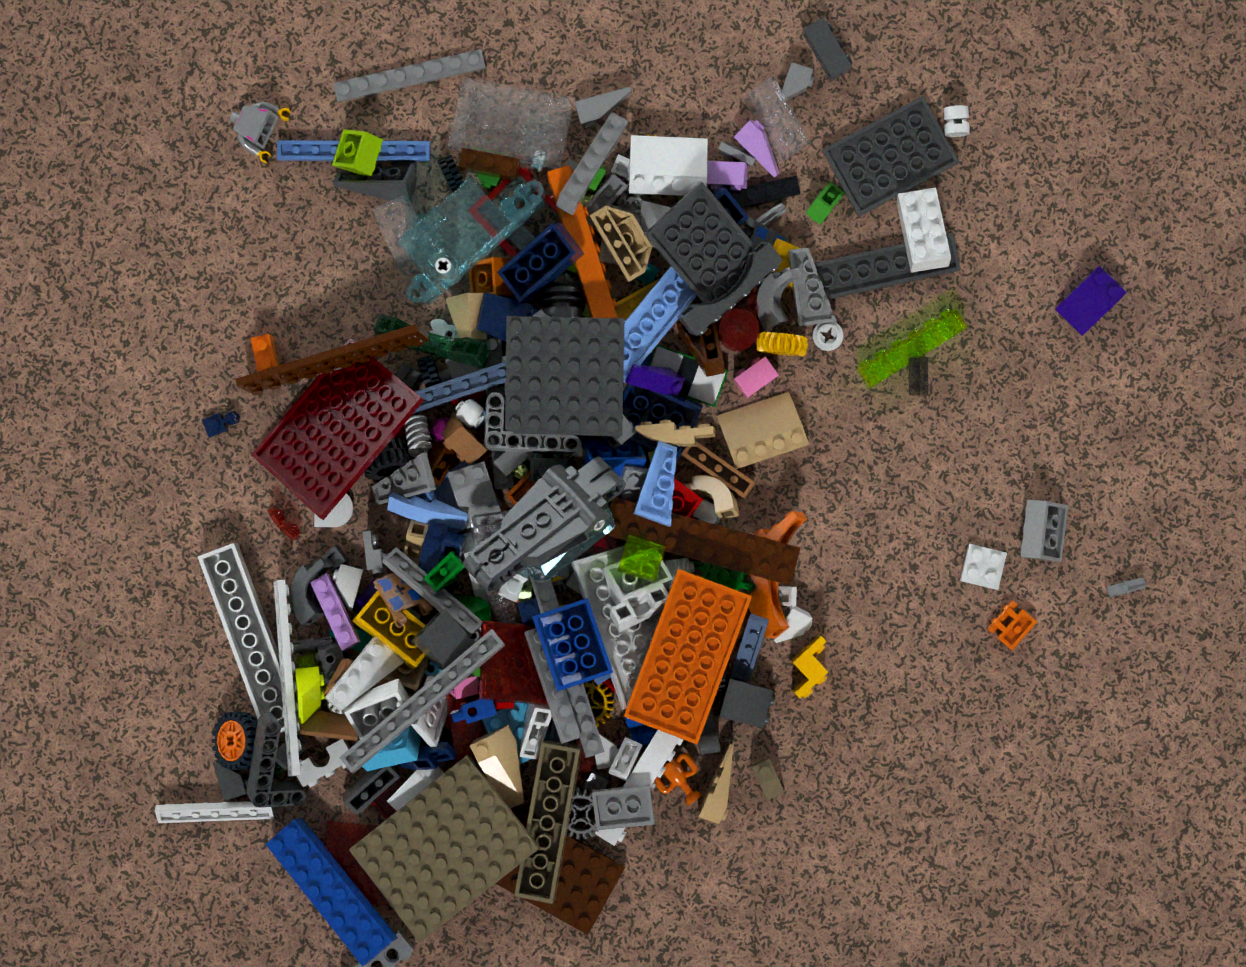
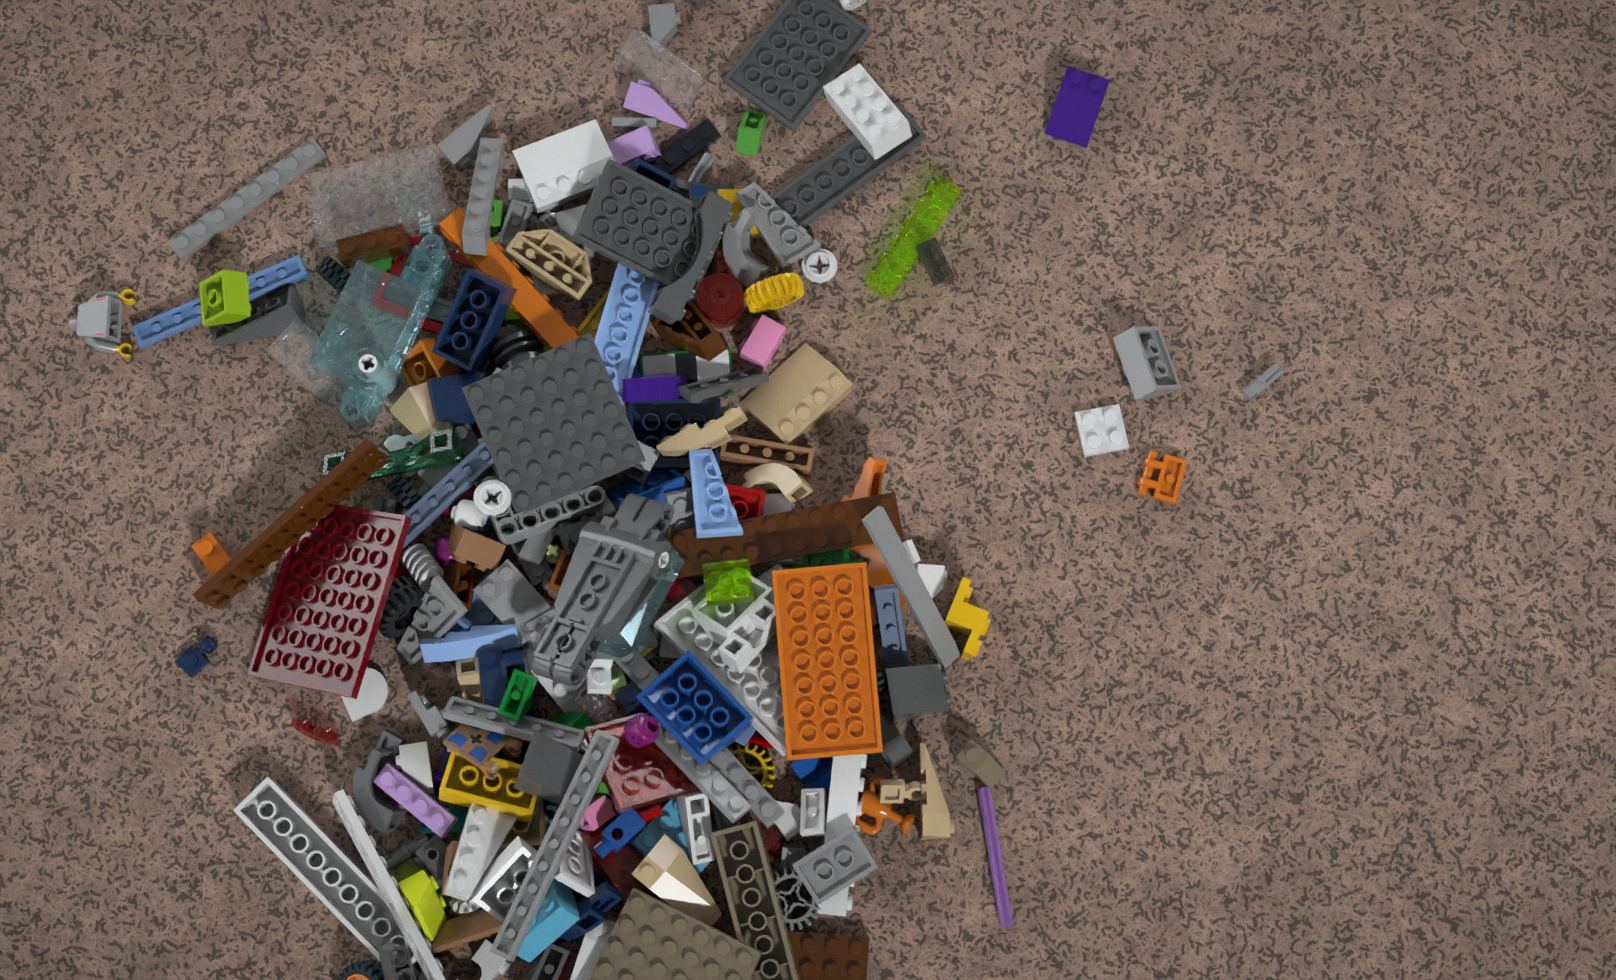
camera: 25 degrees left, 10 degrees down
(497, 404) = (494, 488): none -> white gear
(525, 643) = (641, 730): none -> magenta head
(650, 274) = (597, 288): teal plate -> none
(695, 772) = (896, 790): none -> tan plate
(710, 399) = (723, 384): none -> dark grey plate
(746, 851) = (995, 857): none -> medium lavender axle
(778, 627) = (911, 586): none -> light grey tile

